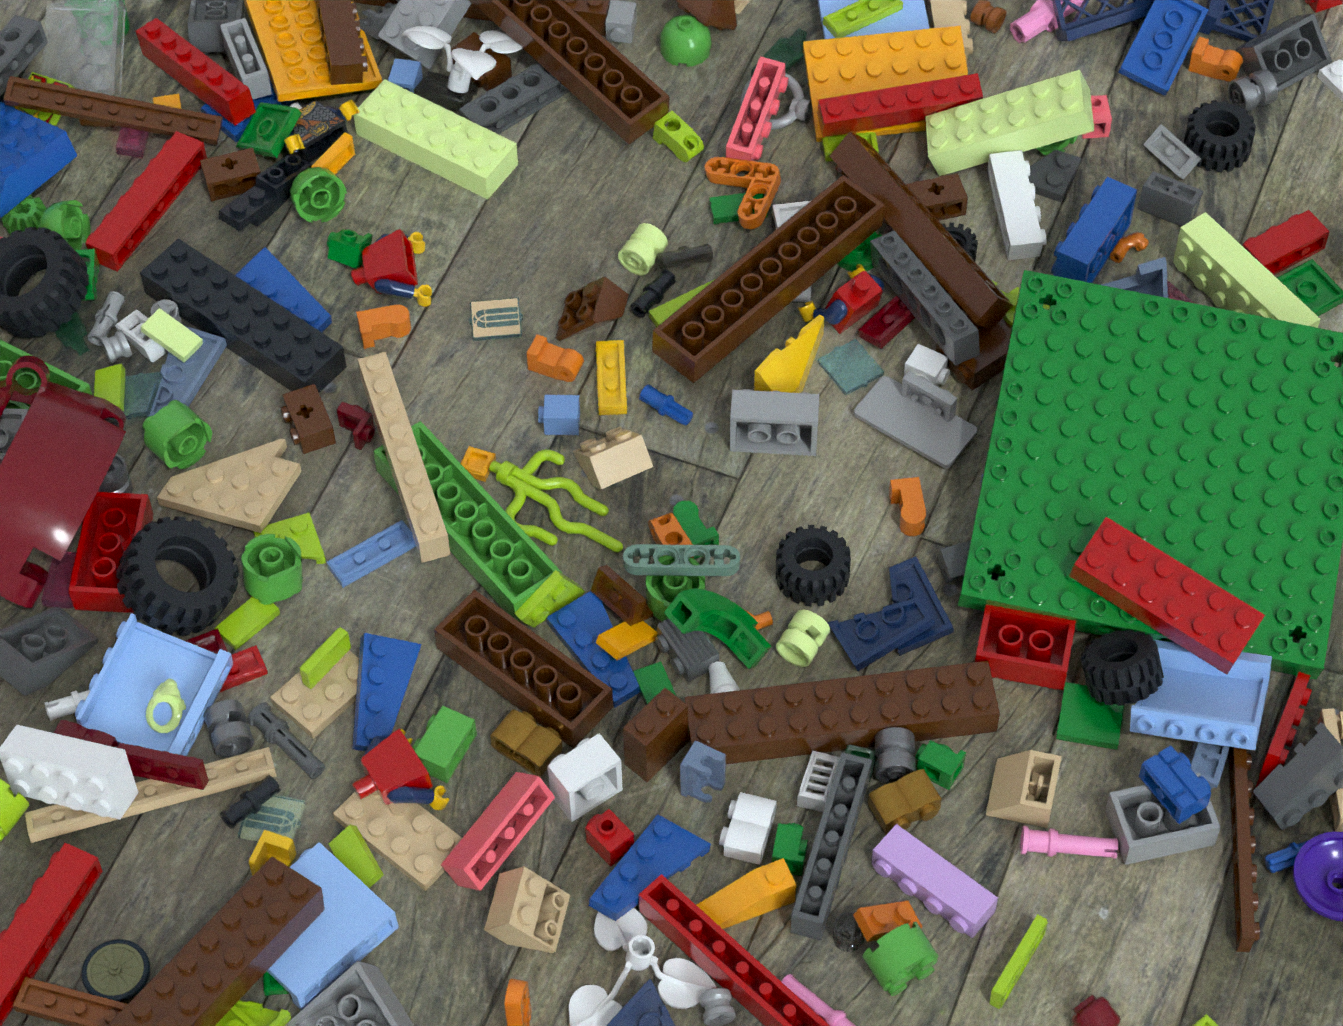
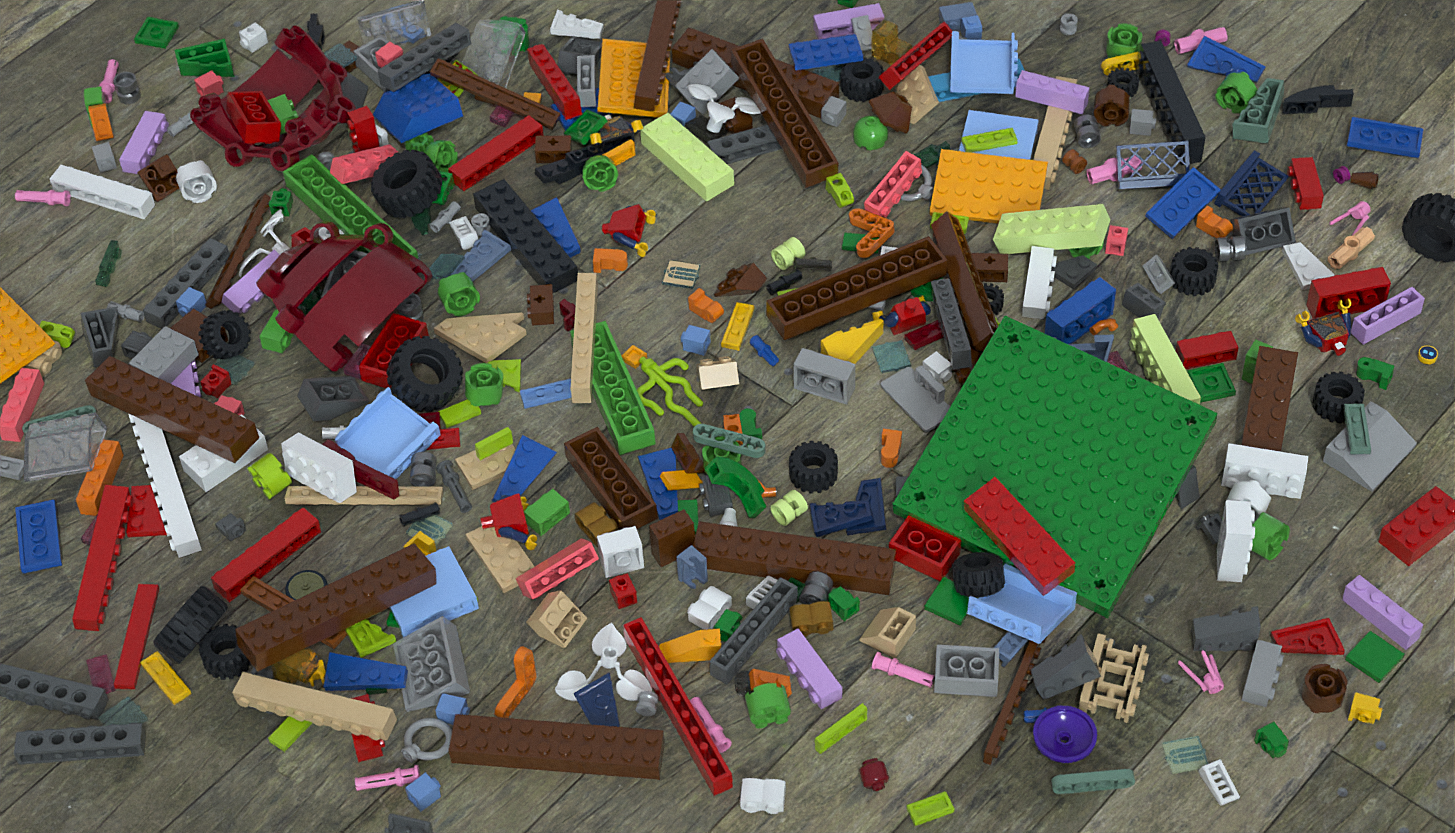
camera: 20 degrees right, 5 degrees down
(111, 384) = (432, 256): lime tile -> none
(116, 346) = (444, 234): light grey wheel -> none
(170, 694) = (394, 440): yellowish green piece -> none
(171, 335) = (478, 235): yellowish green tile -> none
(347, 247) = (604, 208): green brick -> none
(355, 854) = (468, 561): lime tile -> none
(549, 598) = (643, 443): lime wing -> none
(659, 850) = (650, 606): blue wing -> none
(895, 104) = (983, 201): red brick -> none
(1175, 784) = (977, 648): blue brick -> none
(1285, 733) = (1082, 626): red wing -> none

